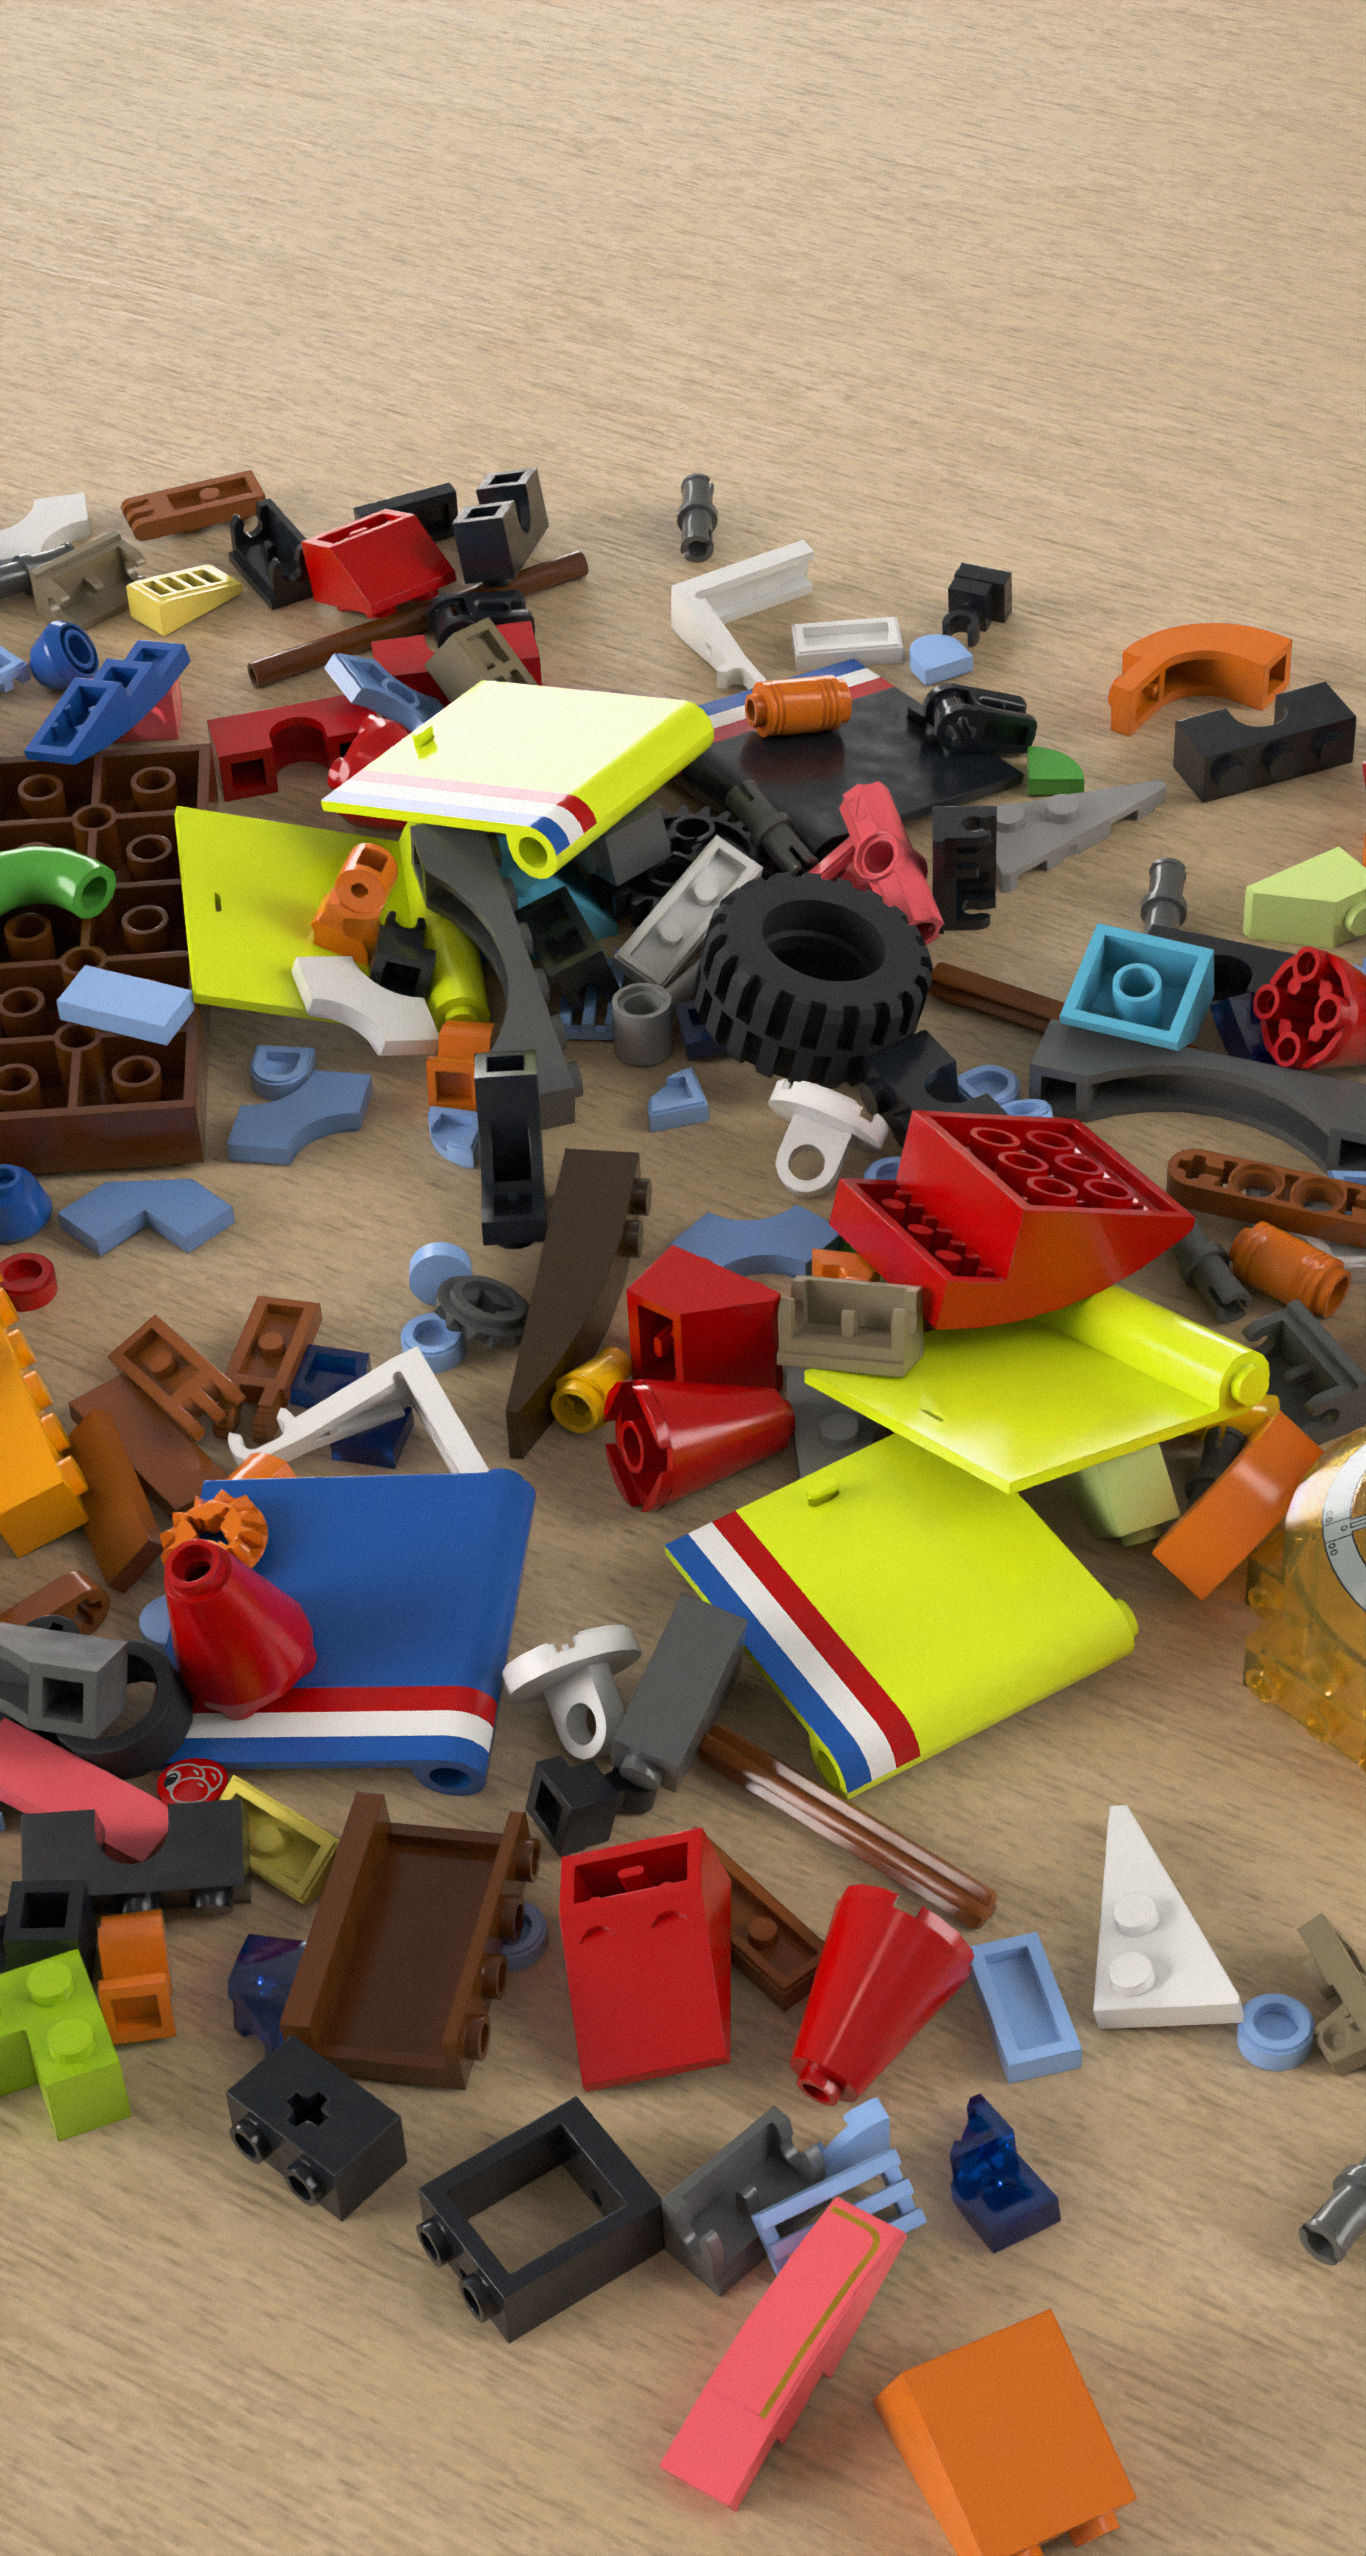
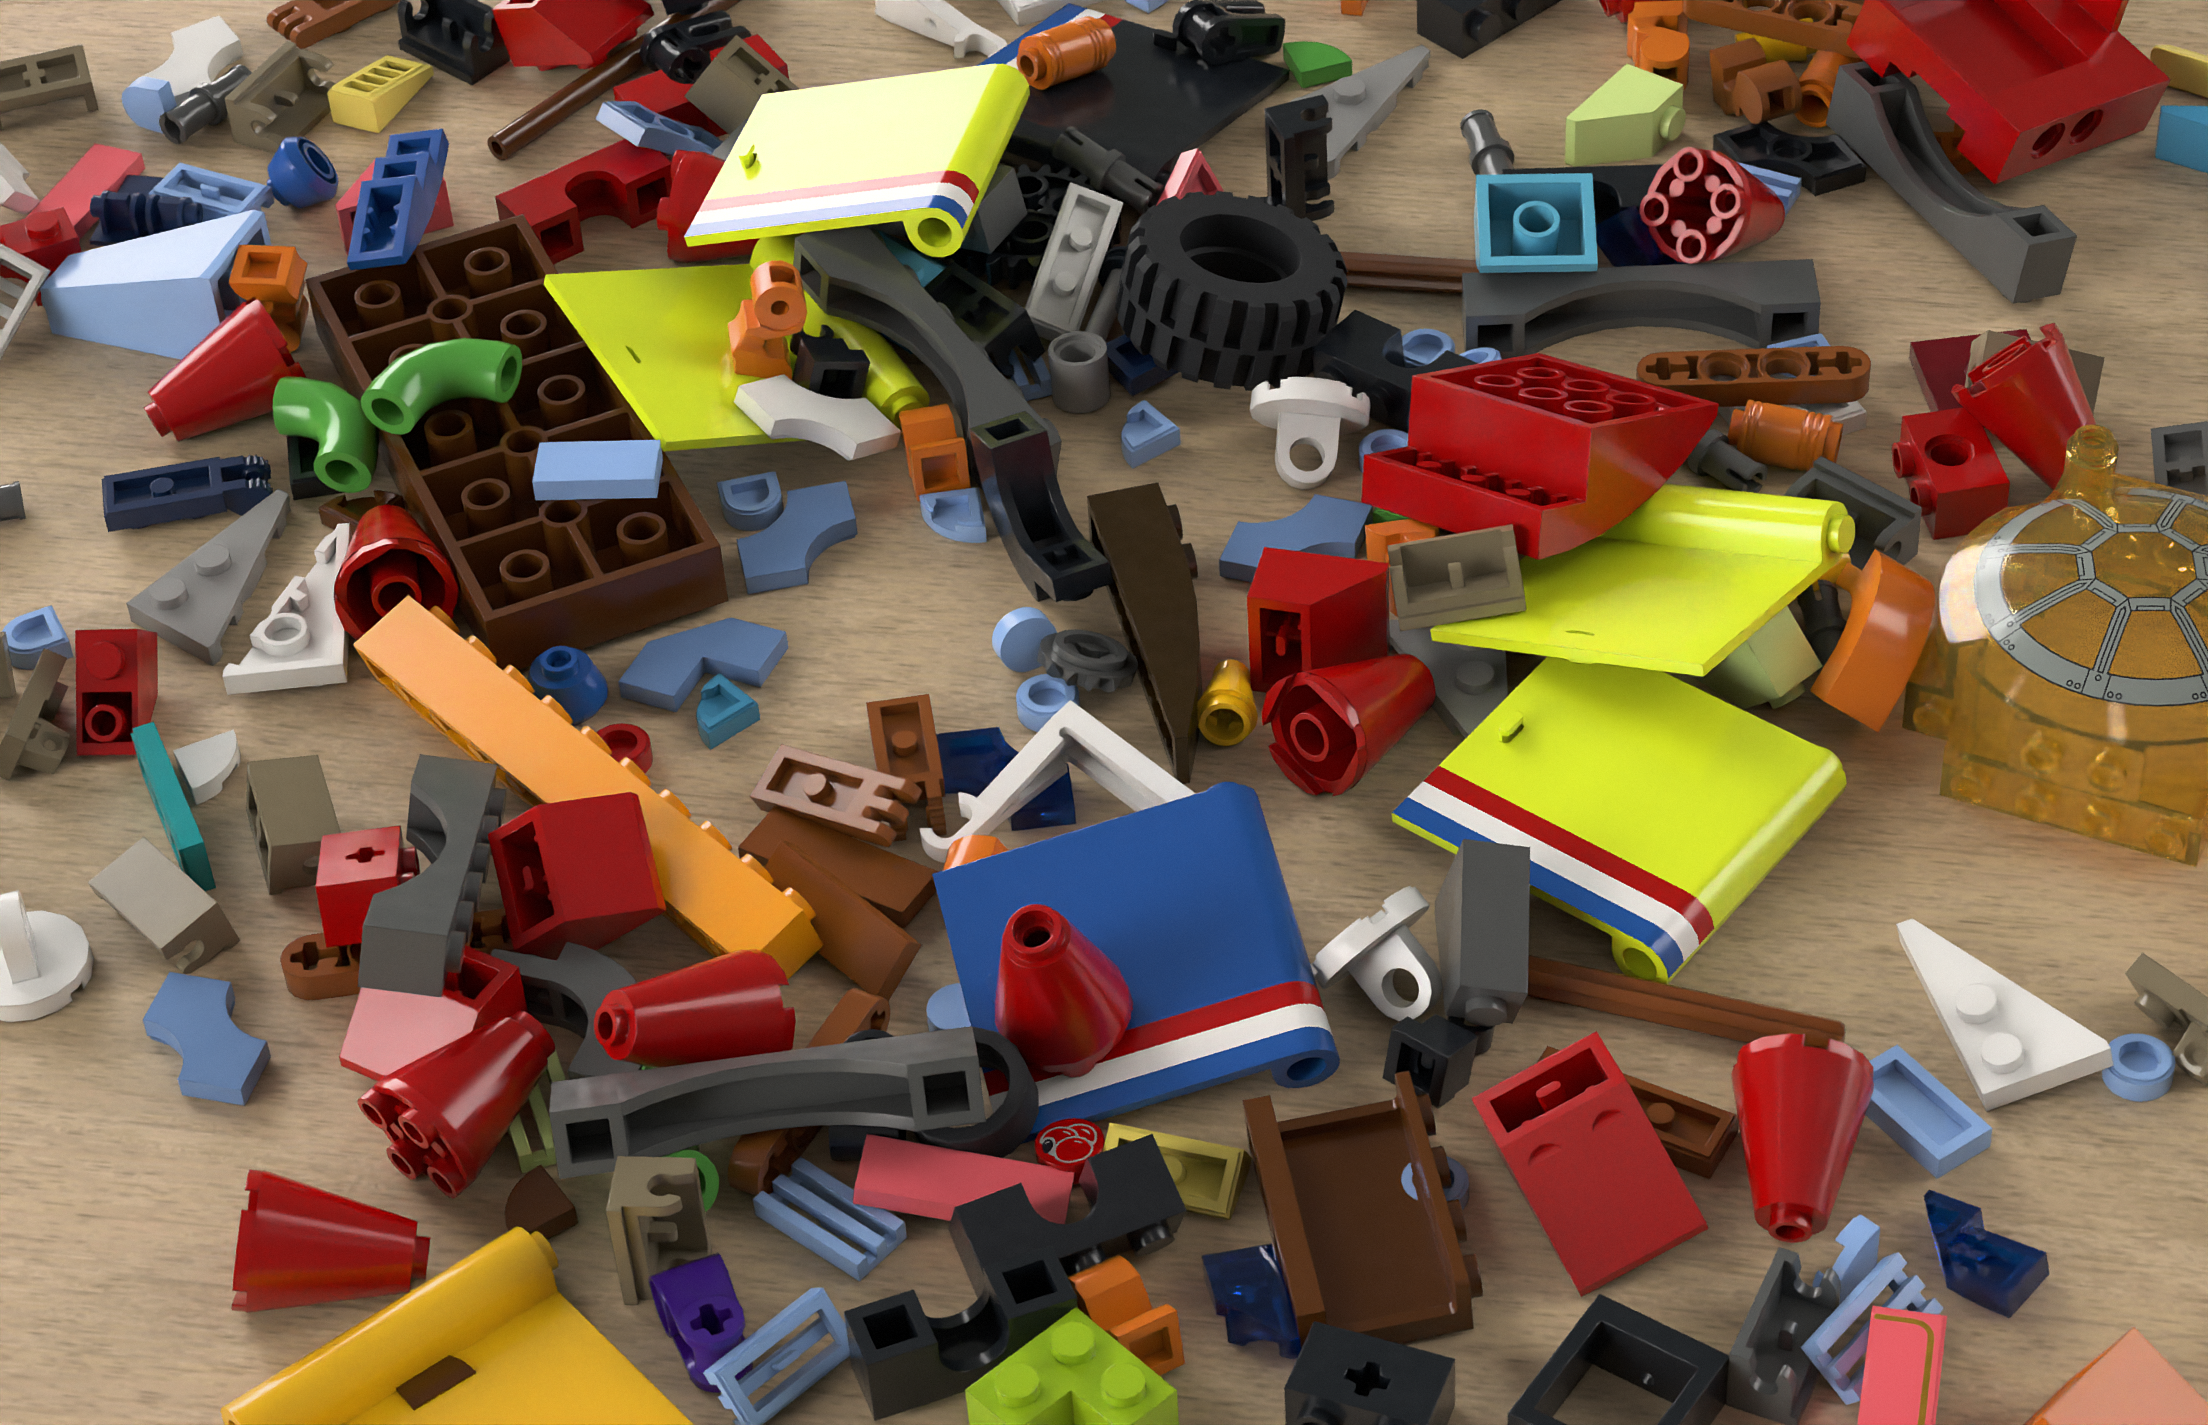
camera: 20 degrees left, 0 degrees up
(137, 1268) = (724, 711): none -> dark azure tile
(235, 1517) = (947, 929): orange gear -> none
(887, 857) = (1221, 151): coral piece -> none

